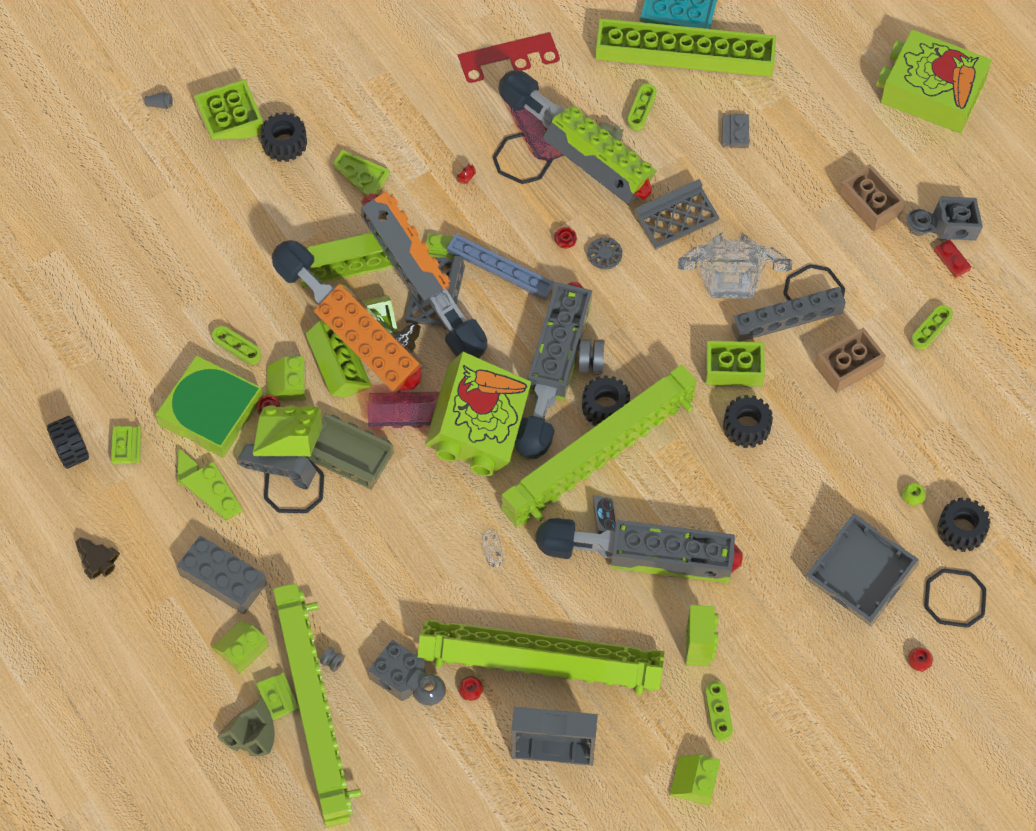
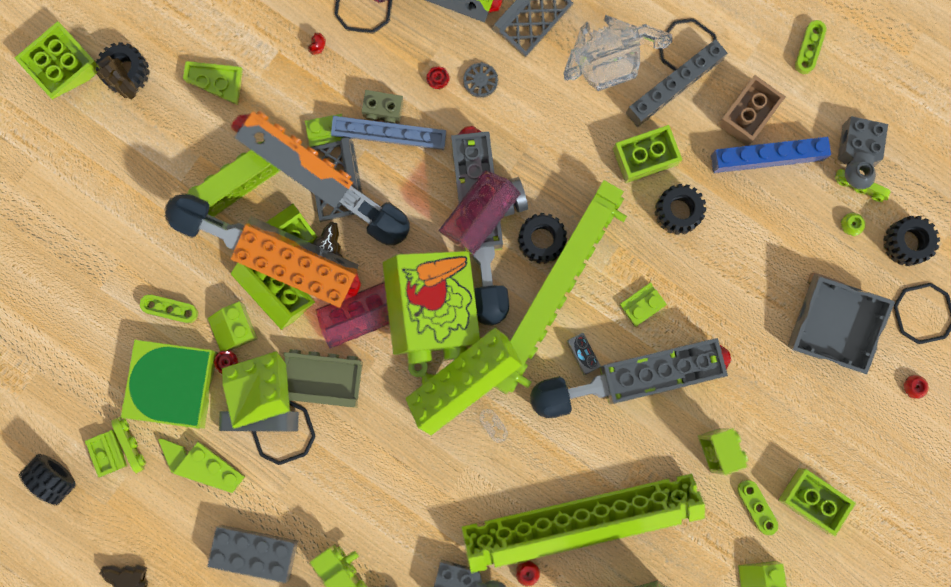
camera: 25 degrees left, 20 degrees up
(150, 444) = (128, 444): none -> lime plate
(277, 137) = (116, 76): none -> dark brown rock
(448, 487) = (421, 373): none -> lime plate
(478, 487) = (463, 381): none -> lime brick
(504, 242) = (382, 106): none -> olive brick
(555, 350) = (480, 211): none -> clear pink slope
(679, 494) = (643, 304): none -> lime plate
(777, 720) = (817, 501): none -> lime brick
(854, 404) = (770, 154): none -> blue brick
(935, 461) = (876, 191): none -> lime plate
(945, 427) = (862, 149): none -> dark grey brick

